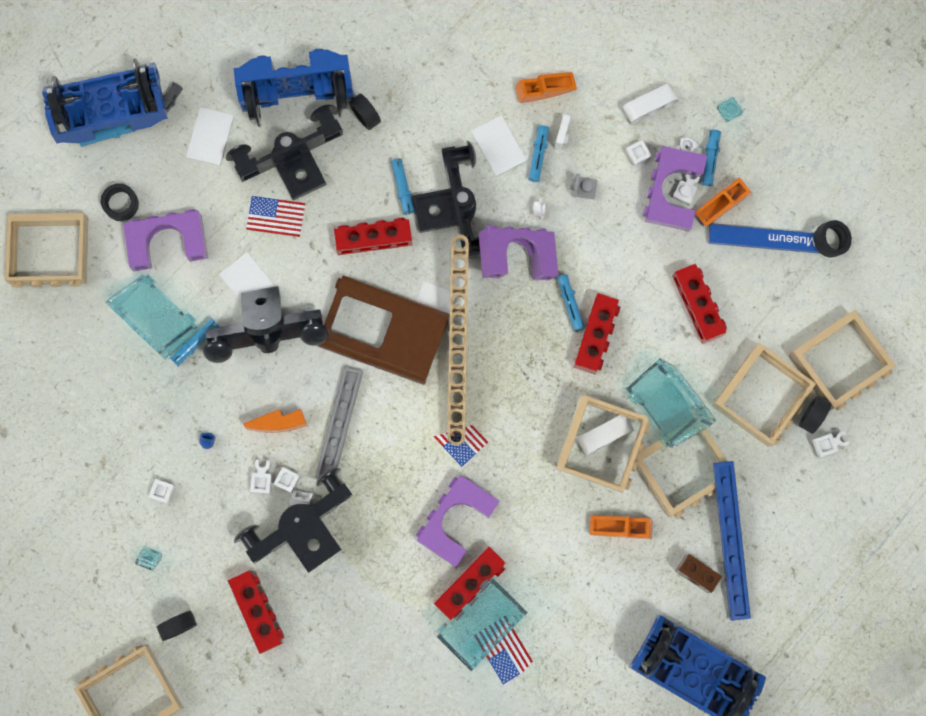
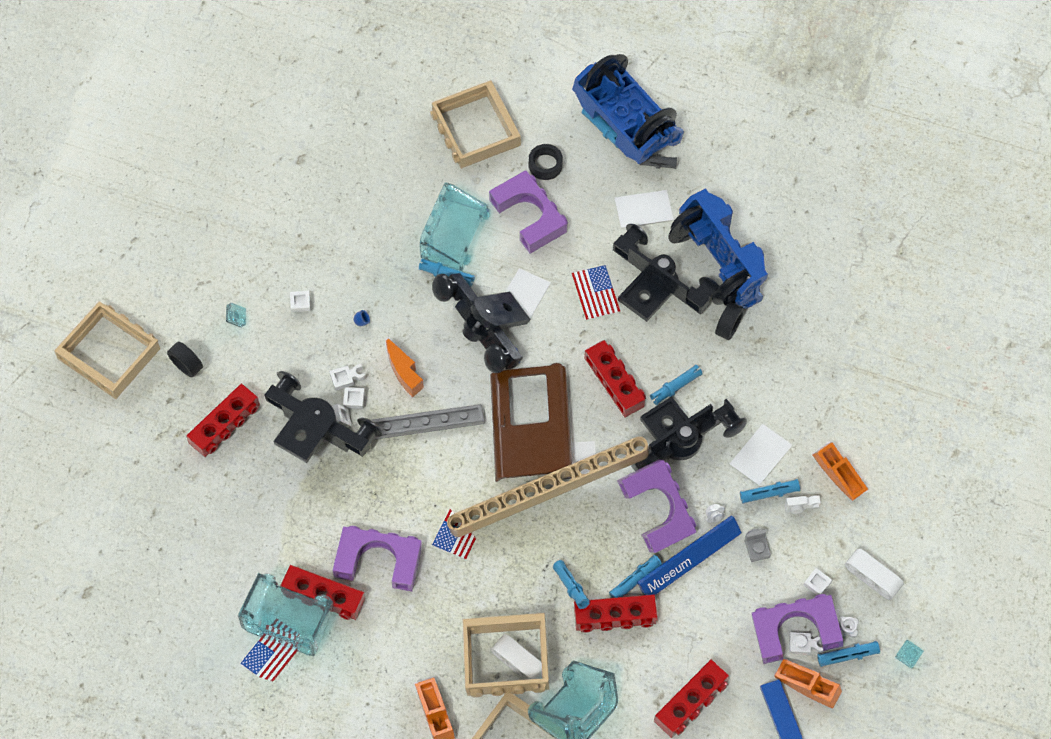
camera: 70 degrees right, 15 degrees down
(557, 360) = (574, 589): none -> dark azure pin
(571, 248) = (689, 557): none -> blue tile

